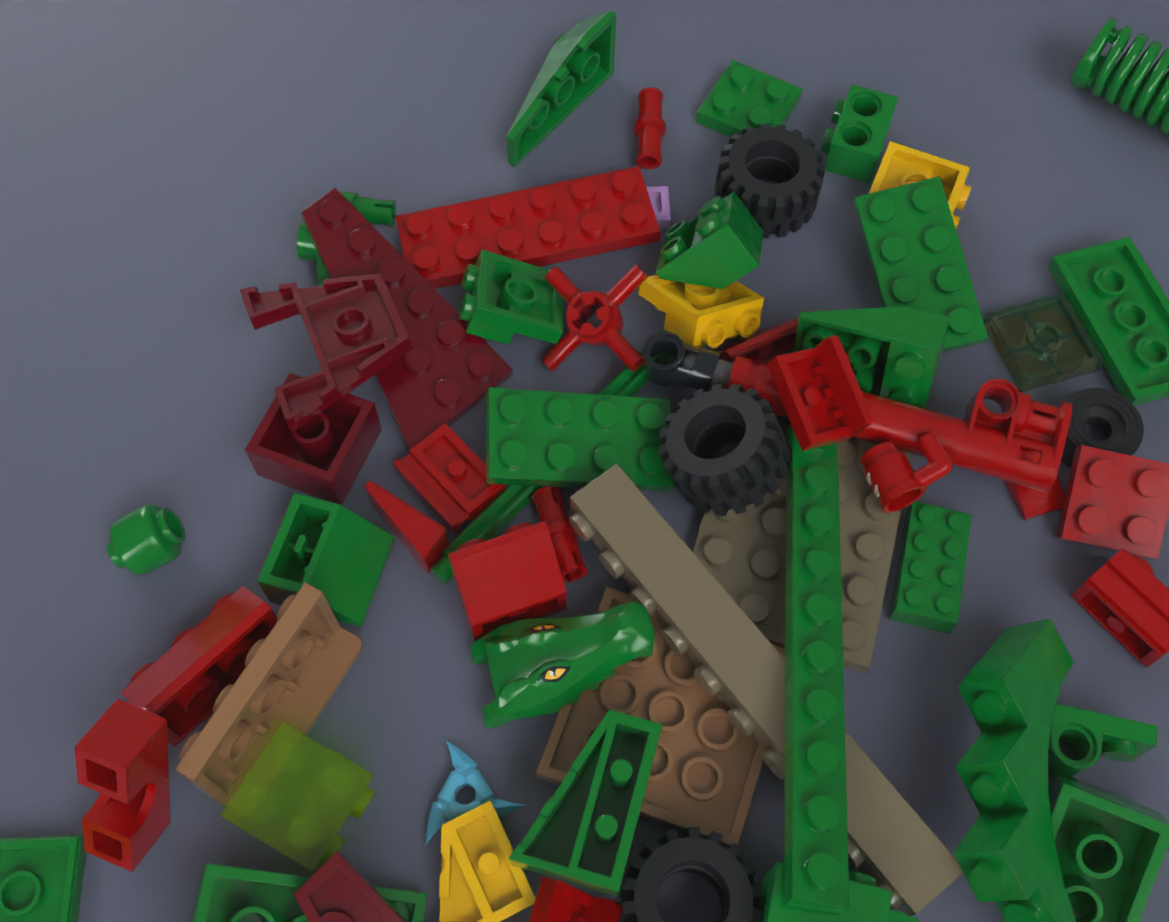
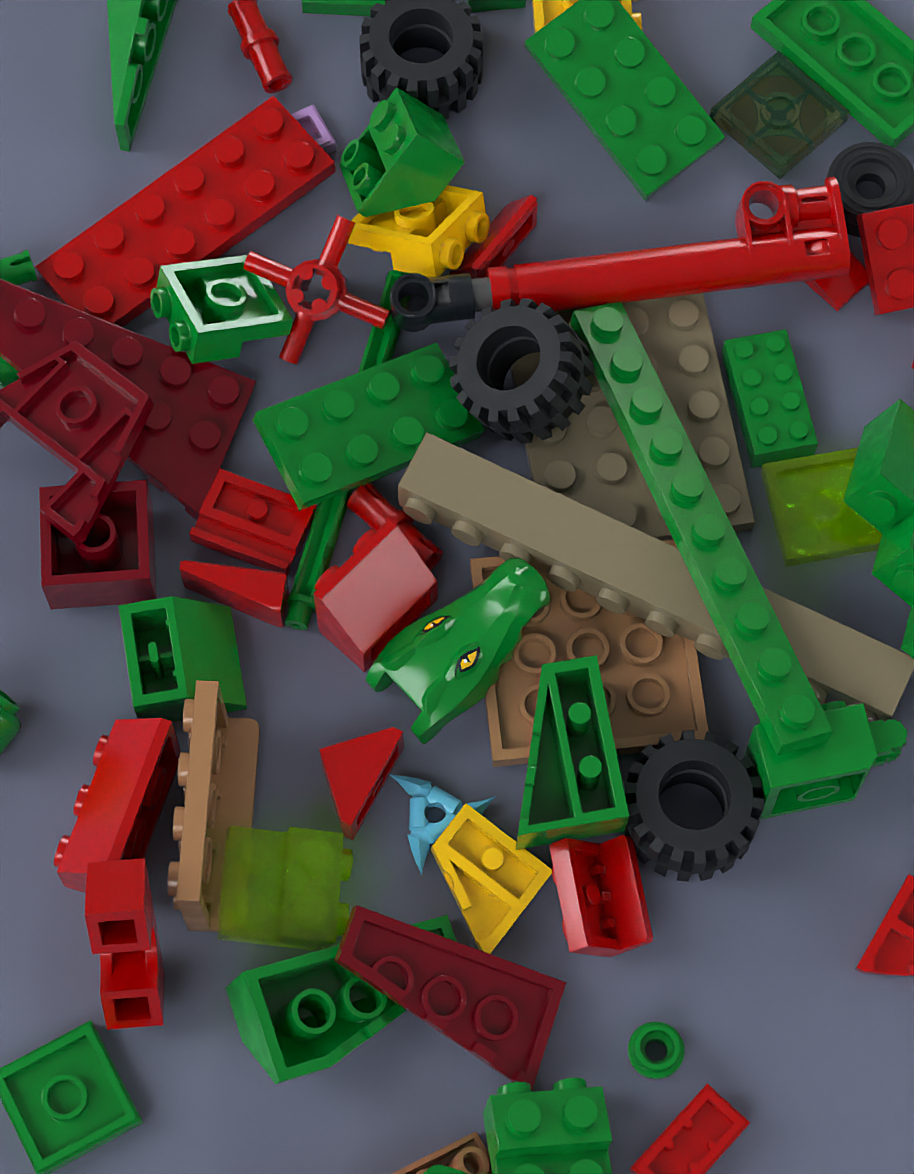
camera: 25 degrees left, 5 degrees up
(416, 728) = (357, 773): none -> red slope
(820, 394) = (592, 274): red bracket -> none
(889, 348) = (619, 204): green slope -> none
(893, 476) = (699, 327): red piece -> none
(925, 680) = (810, 508): none -> clear neon green plate

